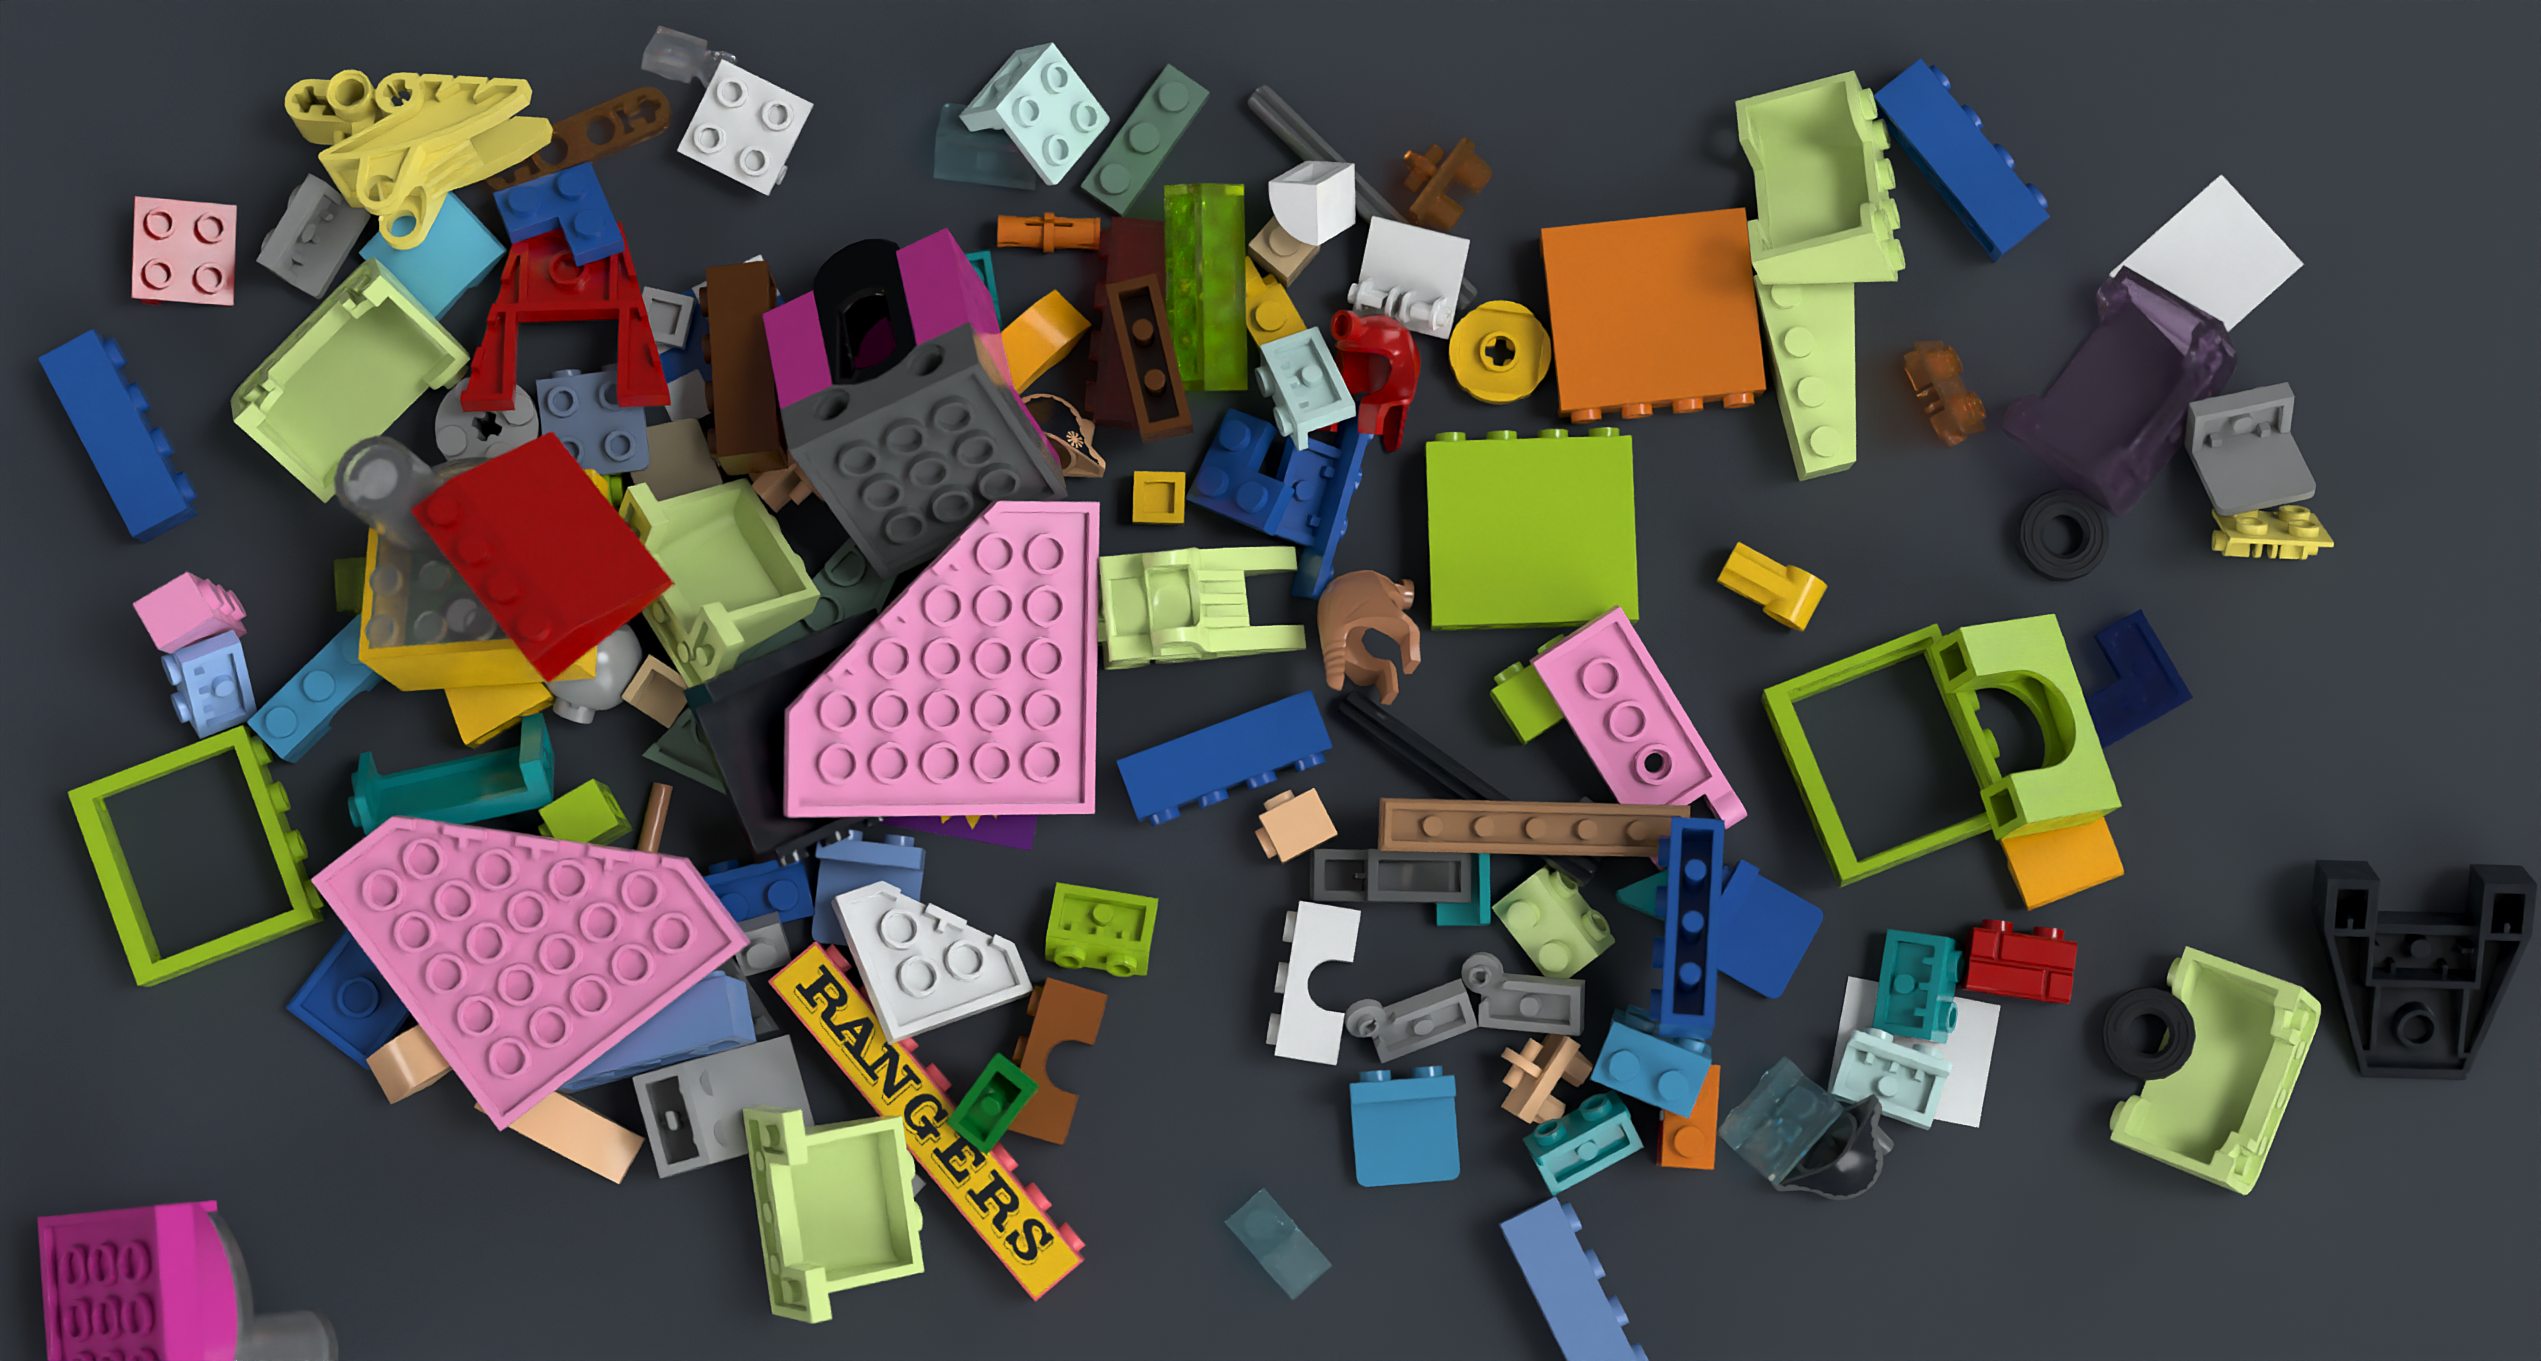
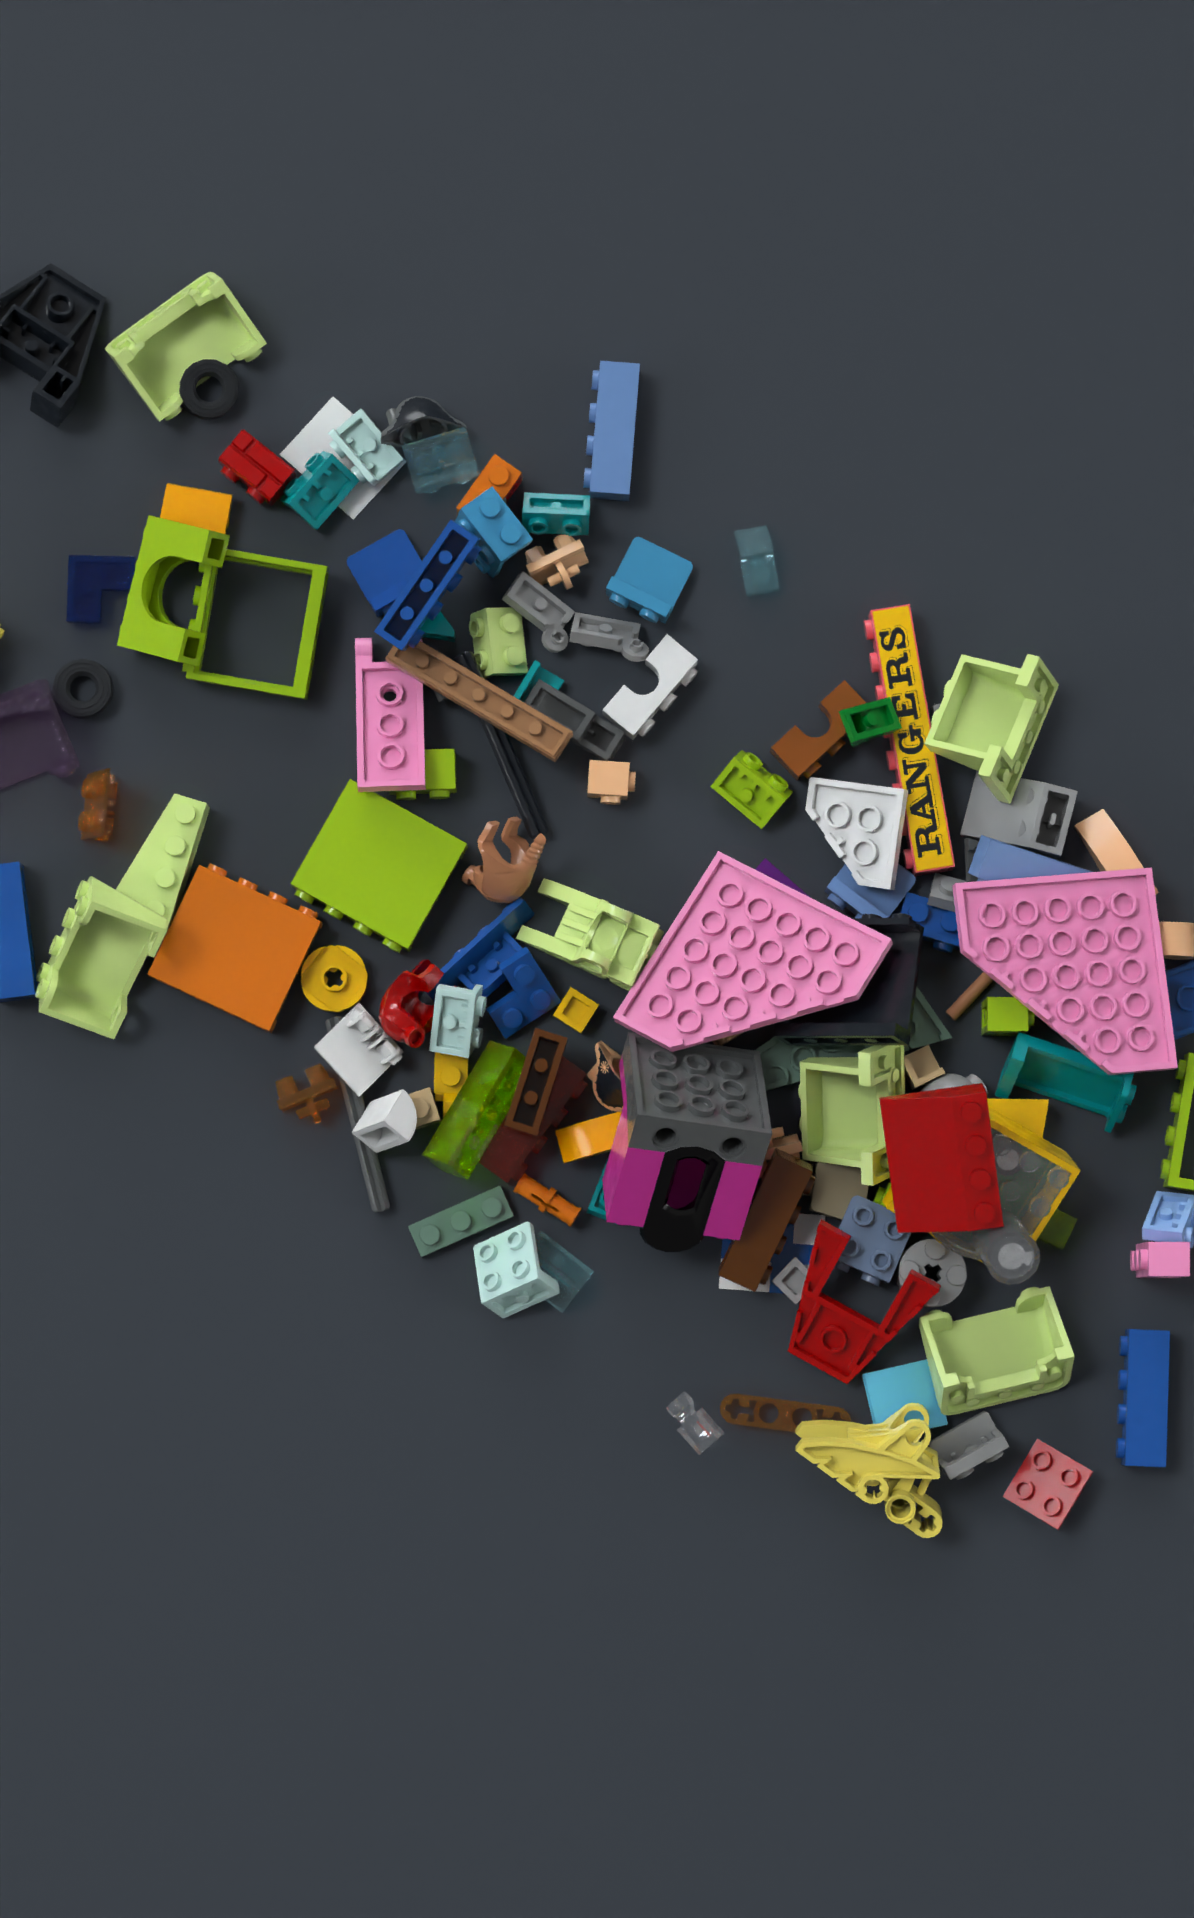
camera: 150 degrees left, 0 degrees up
(307, 703) = (1114, 1180): dark azure arch -> none
(564, 201) = (810, 1381): blue plate -> none
(745, 128) = (685, 1361): white hinge -> none
(1224, 757) = (626, 841): blue brick -> none
(1784, 592) = (259, 750): yellow piece -> none

